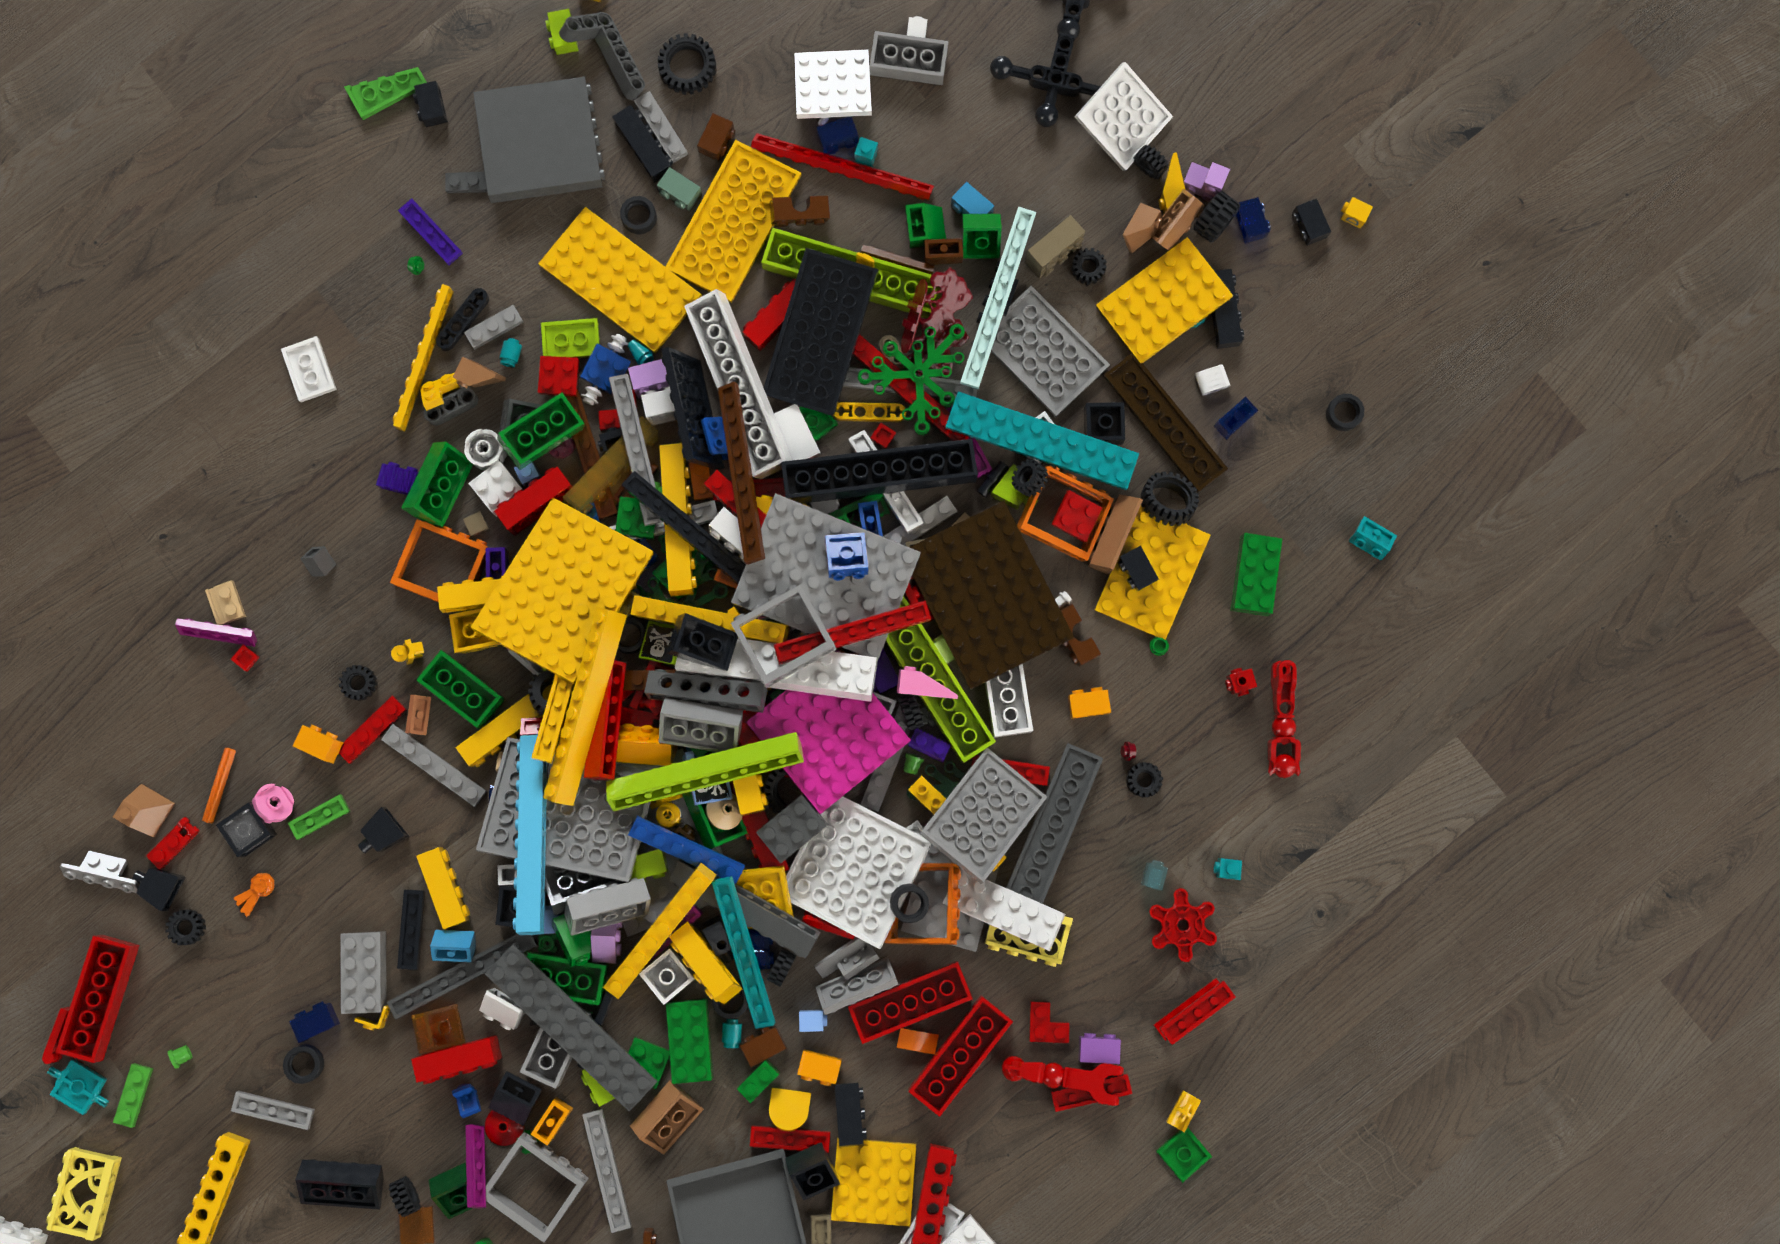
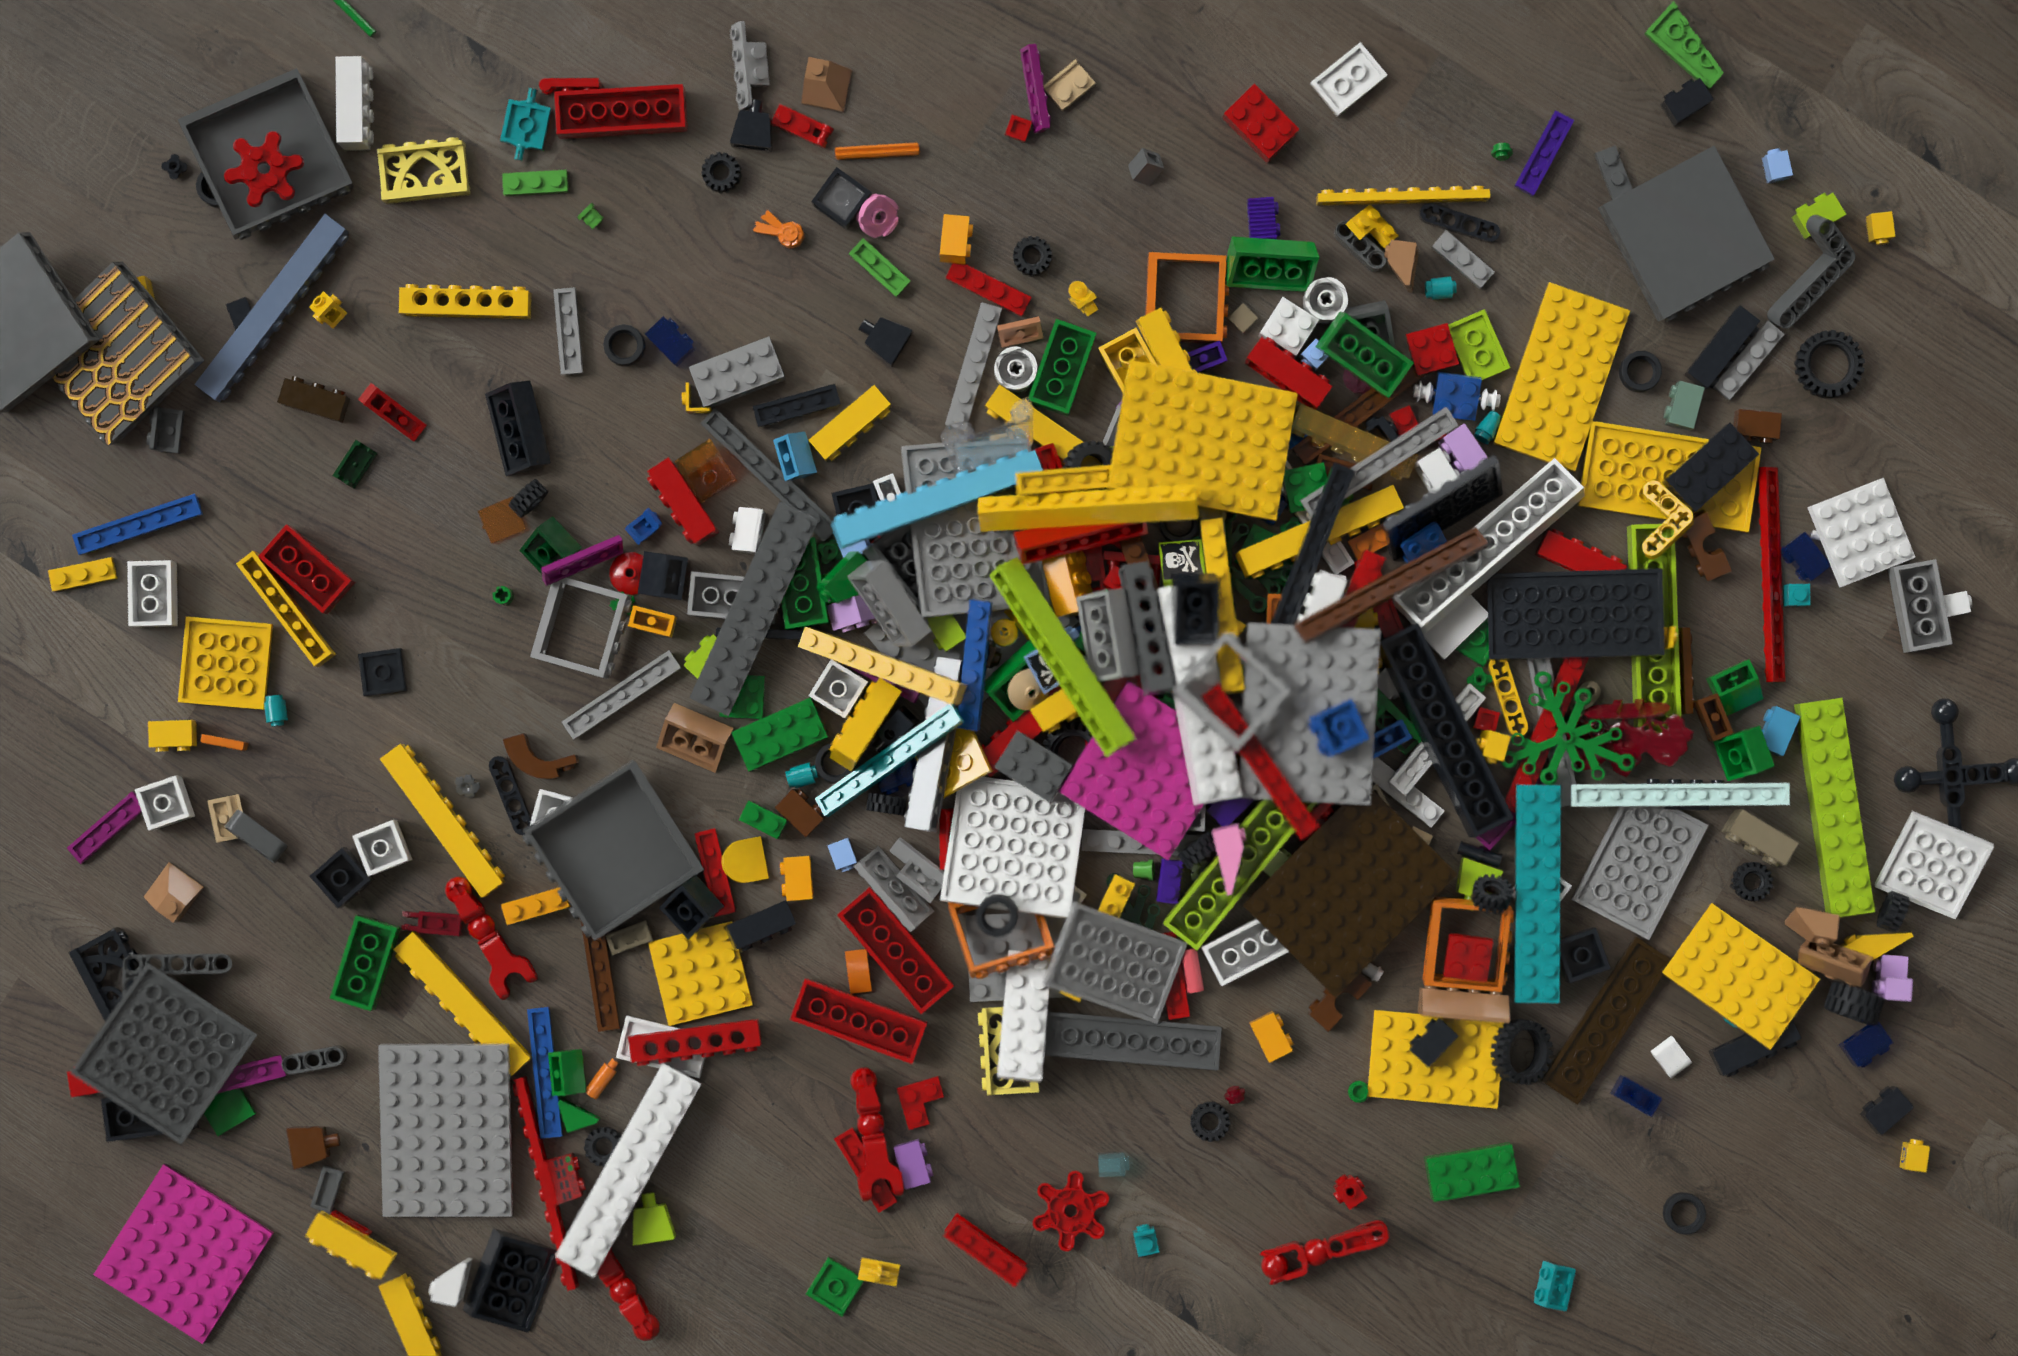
camera: 75 degrees right, 5 degrees up
(317, 453) = (1260, 123): none -> red brick
(444, 719) = (1021, 358): none -> white brick
(499, 790) = (970, 450): none -> clear windscreen
(510, 50) = (1777, 165): none -> light blue brick
(737, 184) = (1710, 467): none -> black brick
(765, 226) = (1673, 516): none -> yellow beam
(842, 430) = (1478, 673): none -> green plate
(906, 435) = (1493, 746): none -> yellow brick
(1012, 752) = (1192, 971): none -> coral brick
(1050, 180) = (1834, 807): none -> lime brick

